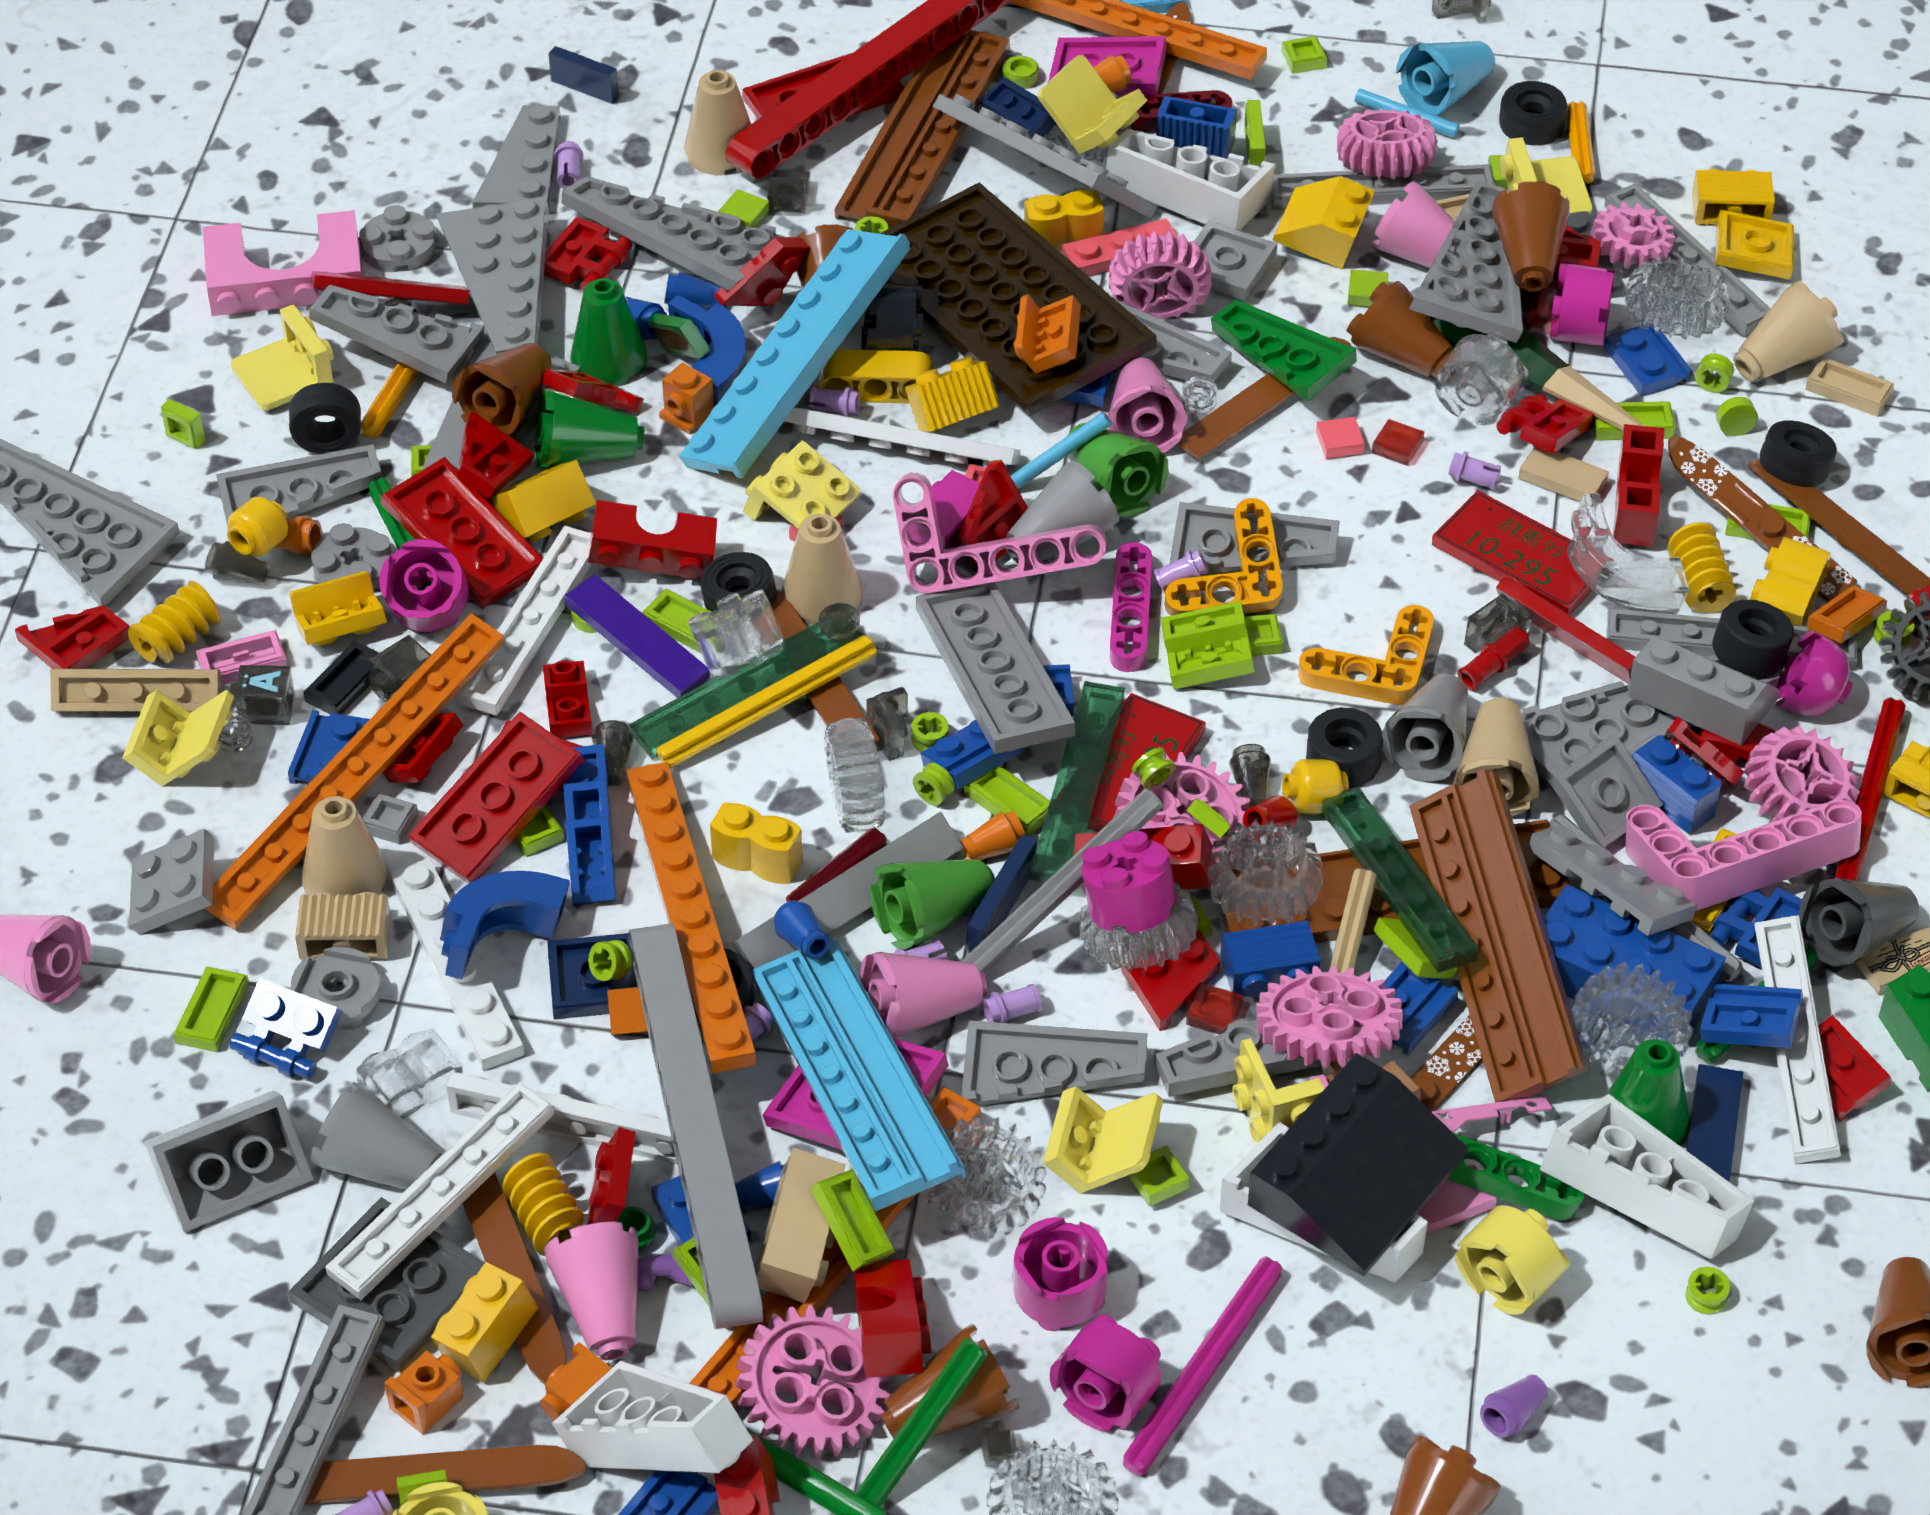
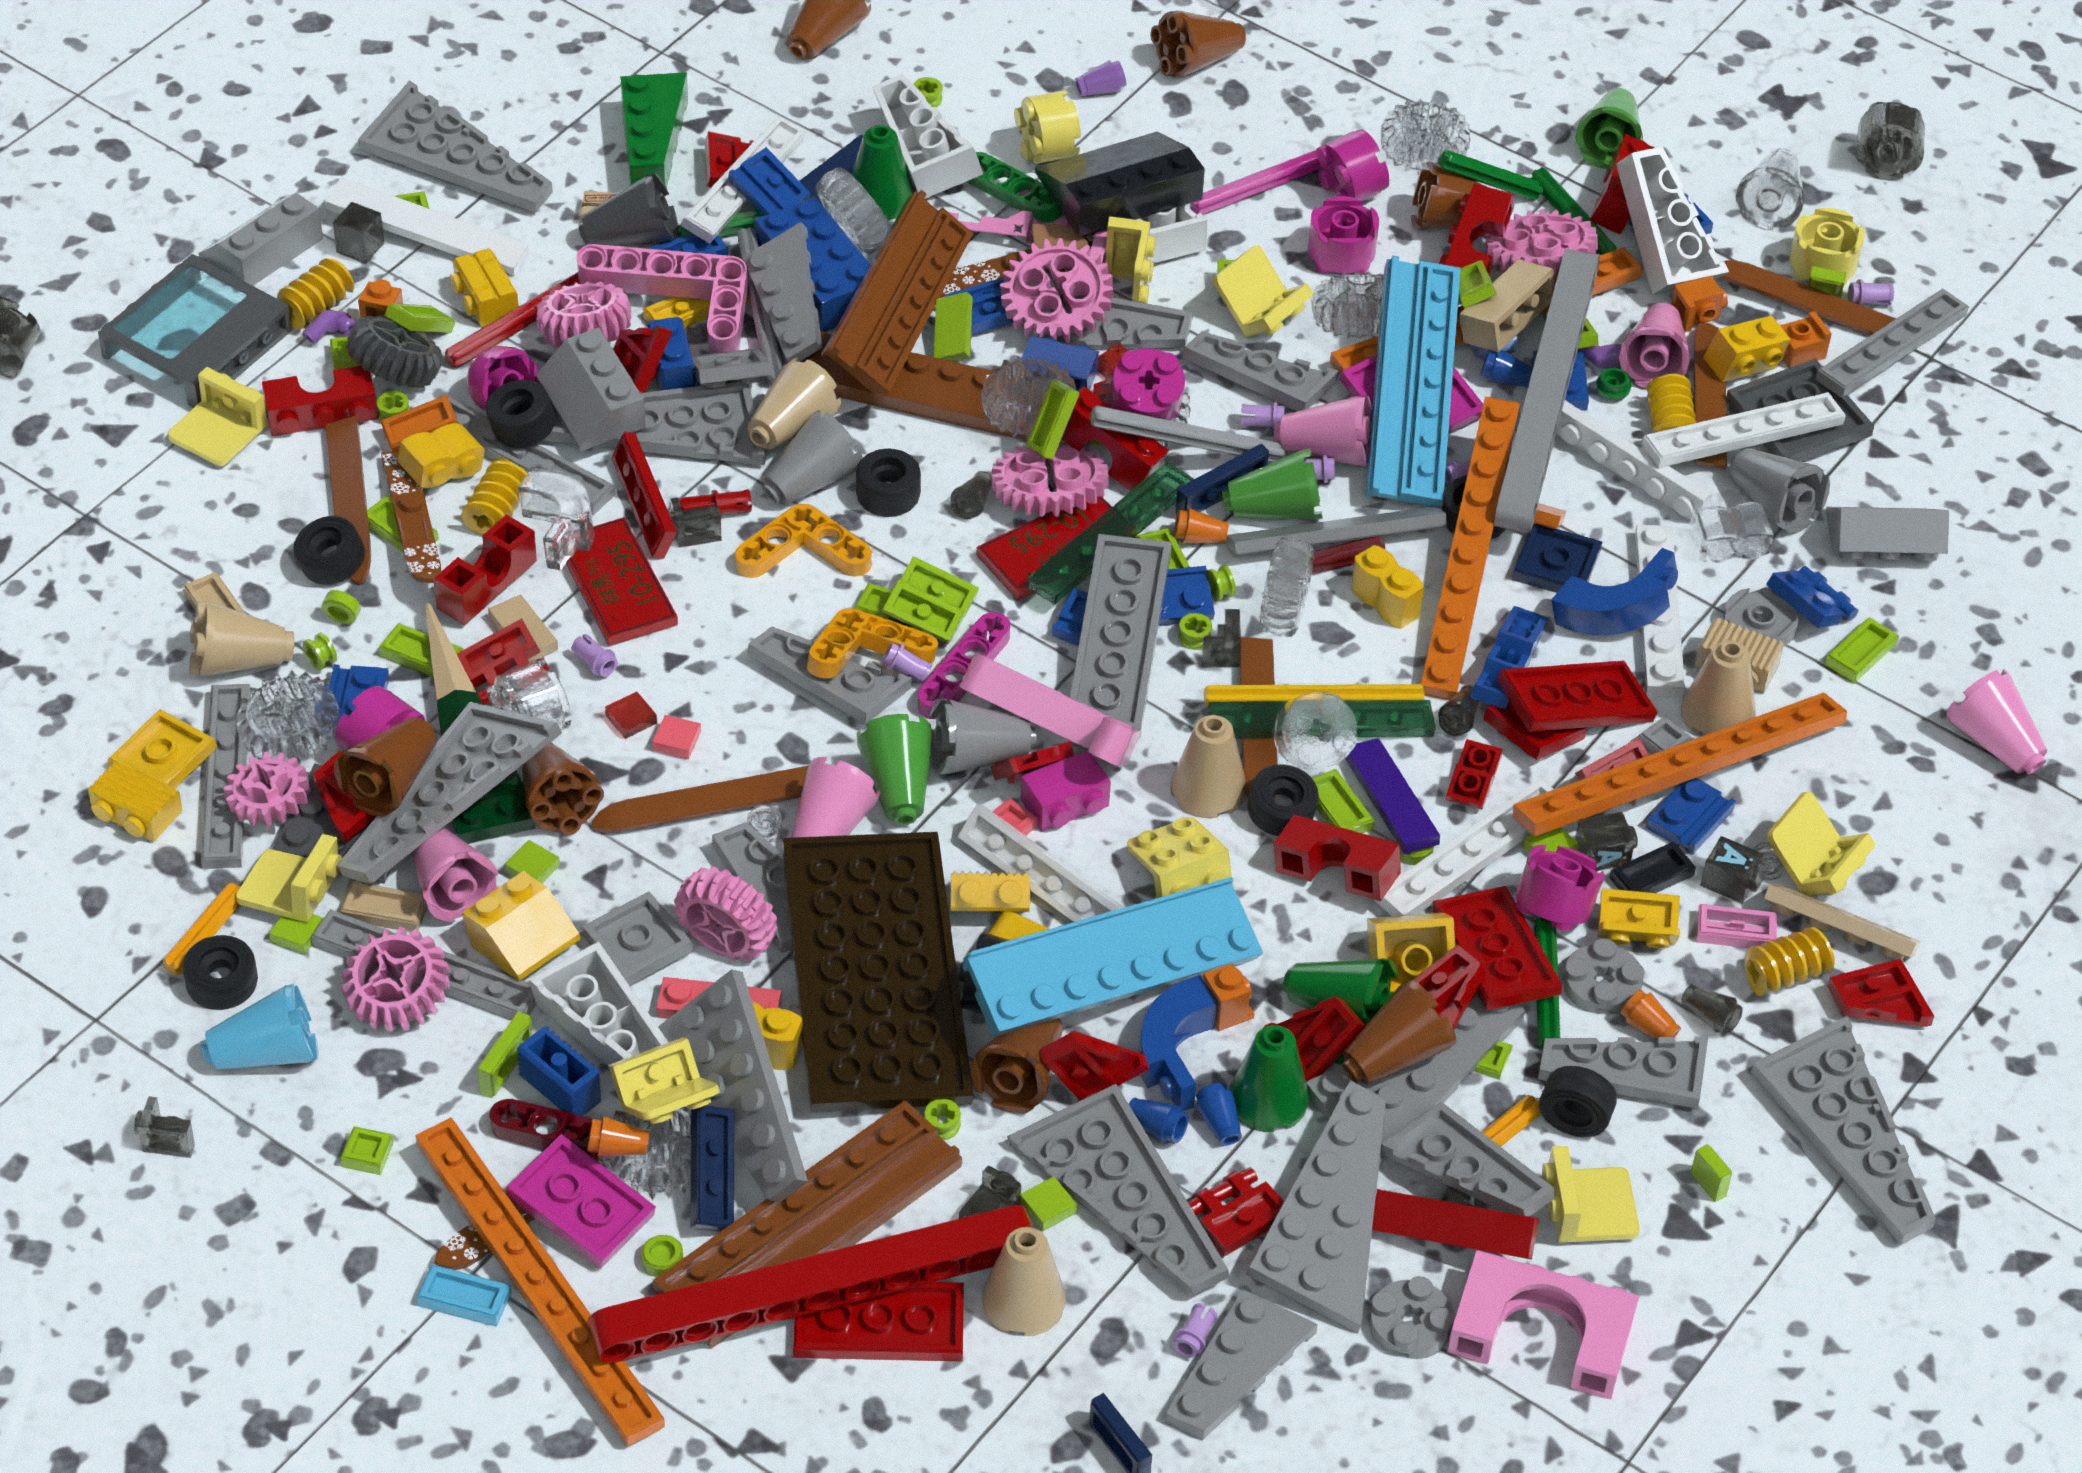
camera: 155 degrees left, 0 degrees up
(171, 881) = (1865, 737): light grey plate -> none
(257, 527) = (1686, 998): yellow head -> none
(611, 1177) = (1620, 396): red plate -> none
(620, 960) = (1548, 533): lime bush -> none
(678, 335) = (1205, 1044): green tile -> none
(799, 926) = (1395, 491): blue cone -> none
(839, 622) = (1226, 705): clear smoke plate -> none
(1047, 333) = (879, 866): orange bracket -> none
(1061, 450) = (934, 781): medium azure bar -> none
(1153, 767) = (1059, 467): lime bush -> none
(1276, 808) = (987, 448): red cone -> none
(1284, 349) = (666, 809): green wing -> none
(1312, 782) = (936, 461): yellow head -> none
(1353, 919) = (989, 354): tan axle -> none
(1376, 102) = (333, 1038): medium azure bar -> none
(1400, 881) = (933, 362): clear green tile -> none

